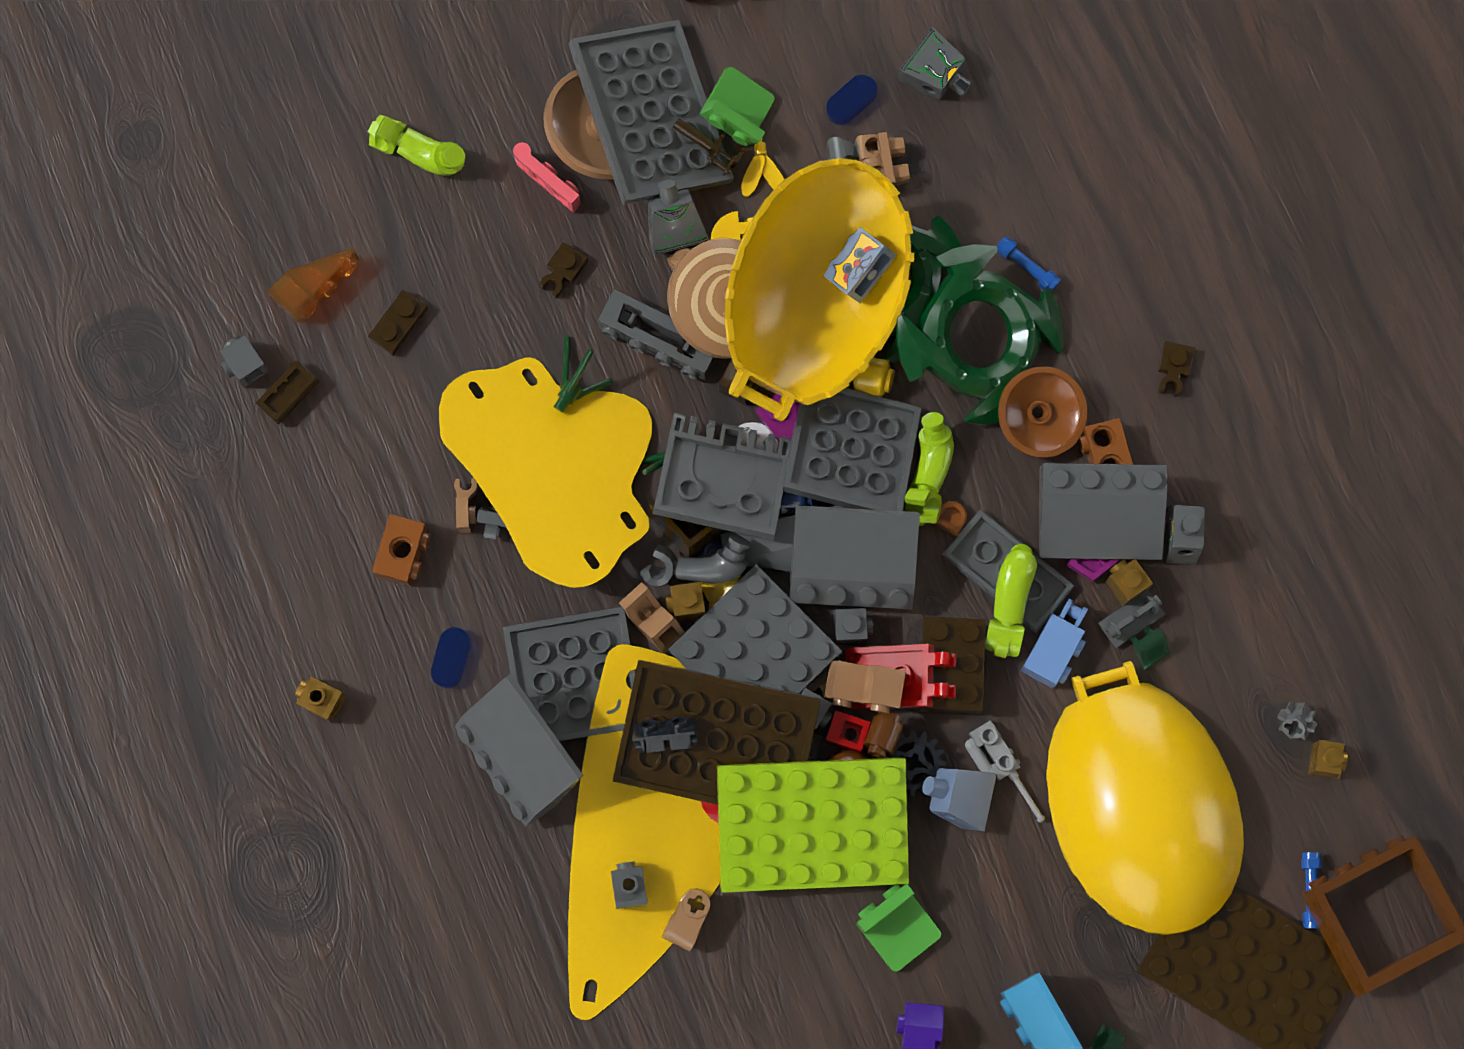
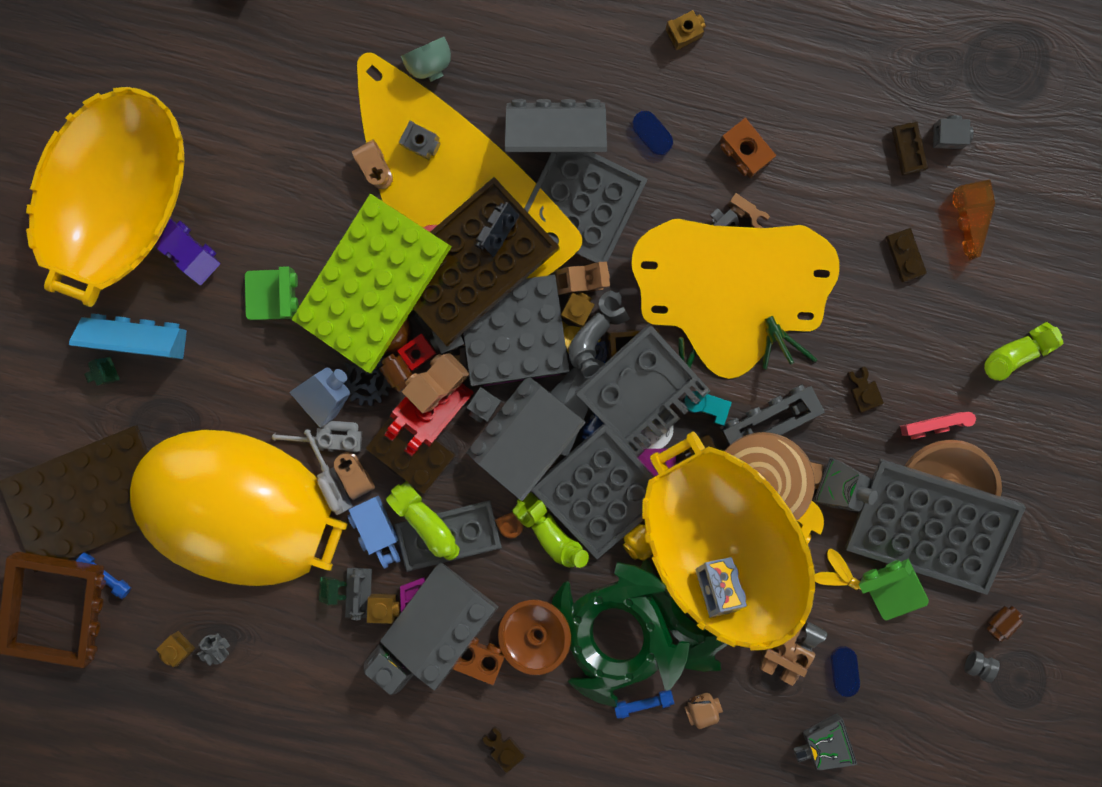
camera: 125 degrees right, 10 degrees up
(537, 939) = (428, 60): none -> sand green cylinder
(686, 403) = (709, 405): none -> teal leg
(709, 145) = (880, 549): dark brown piece -> none
(990, 204) = (703, 710): none -> medium nougat head
(1021, 705) = (356, 479): none -> medium nougat piece
(1044, 726) = (330, 483): none -> light grey piece

